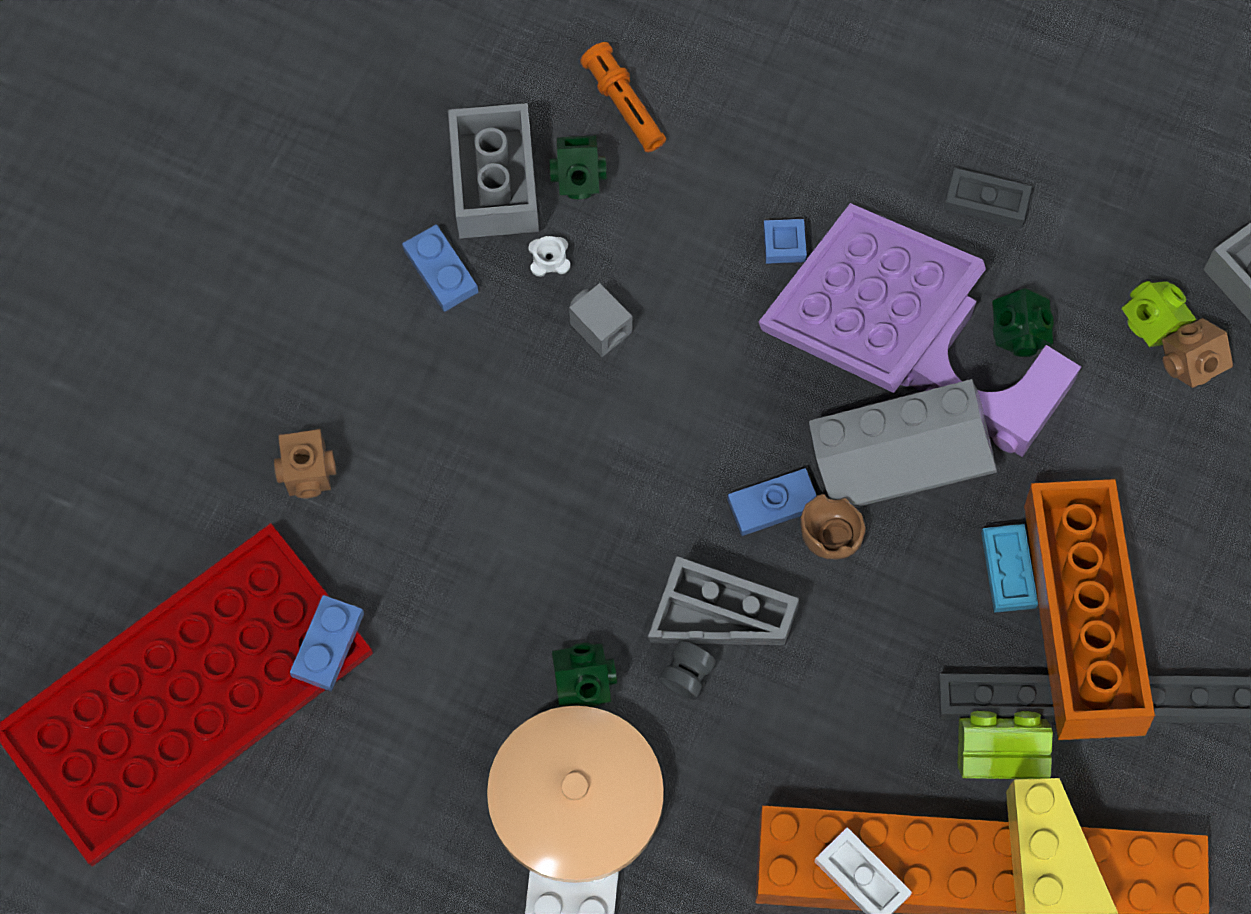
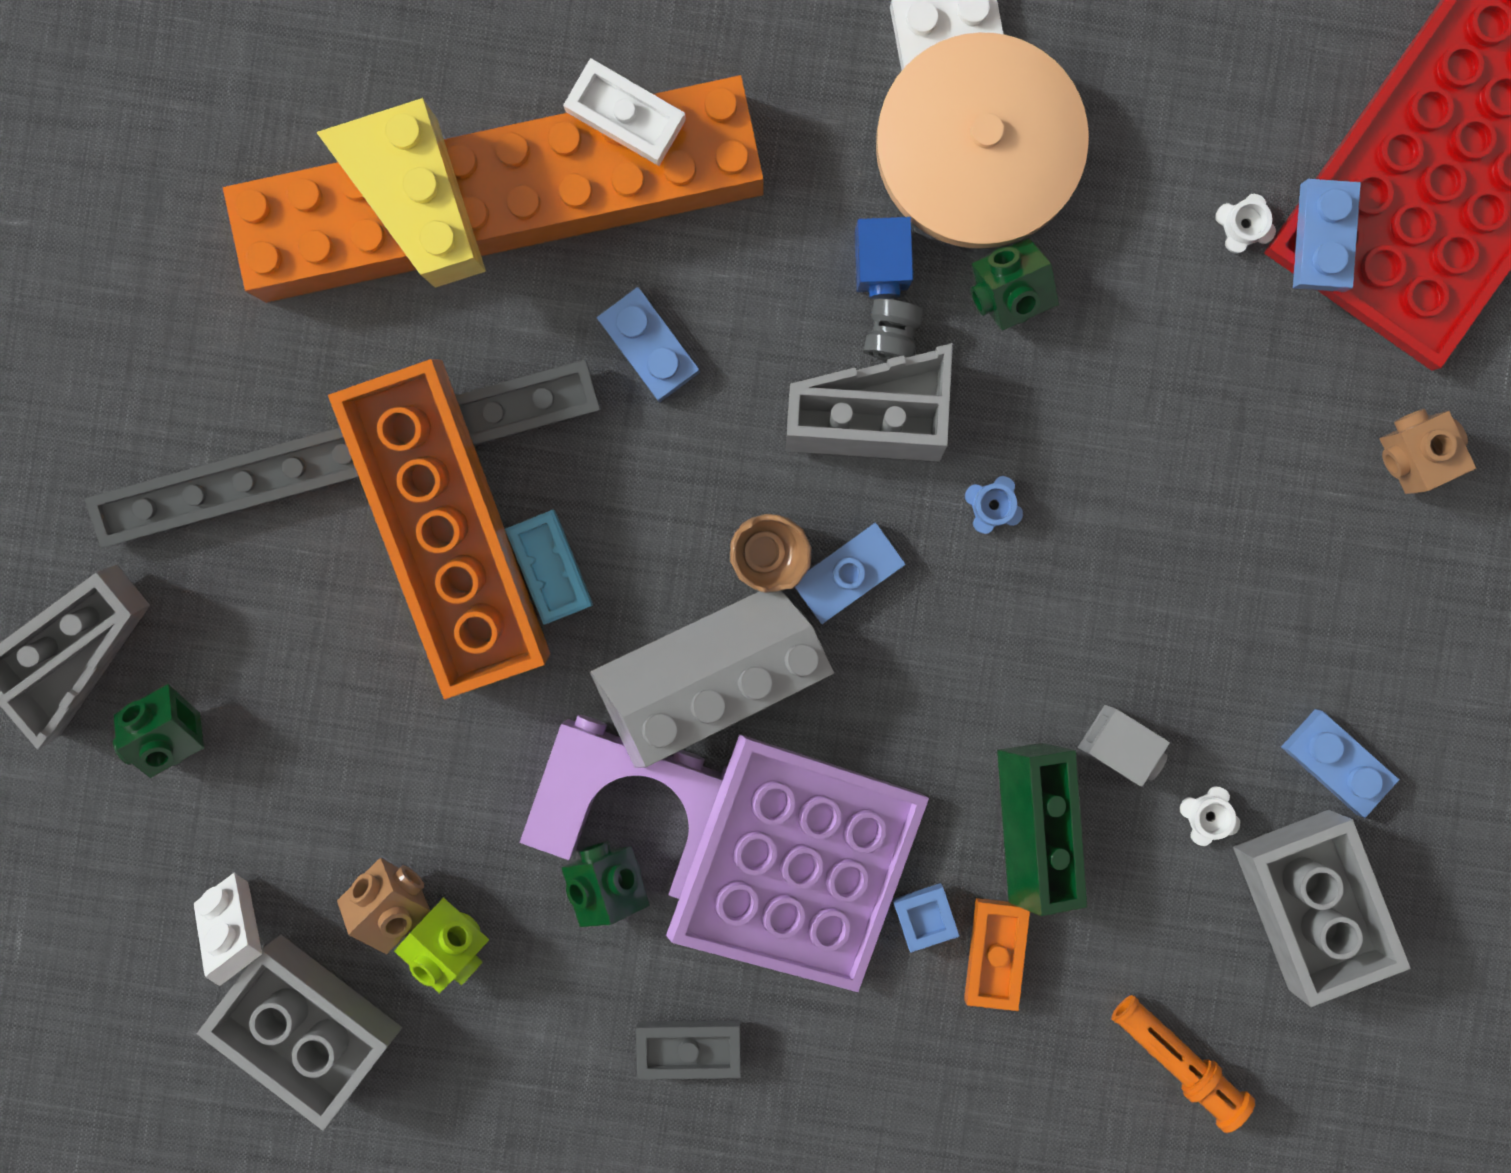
camera: 160 degrees right, 20 degrees up
(379, 667) = (1260, 219): none -> white plate
(578, 166) = (1215, 944): dark green brick -> none
(645, 509) = (1003, 493): none -> medium blue plate
(678, 729) = (883, 256): none -> blue brick
(681, 276) = (1042, 828): none -> dark green brick
(738, 203) = (996, 955): none -> orange plate
(886, 719) = (648, 344): none -> medium blue plate
(1005, 746) = (502, 339): lime brick -> none

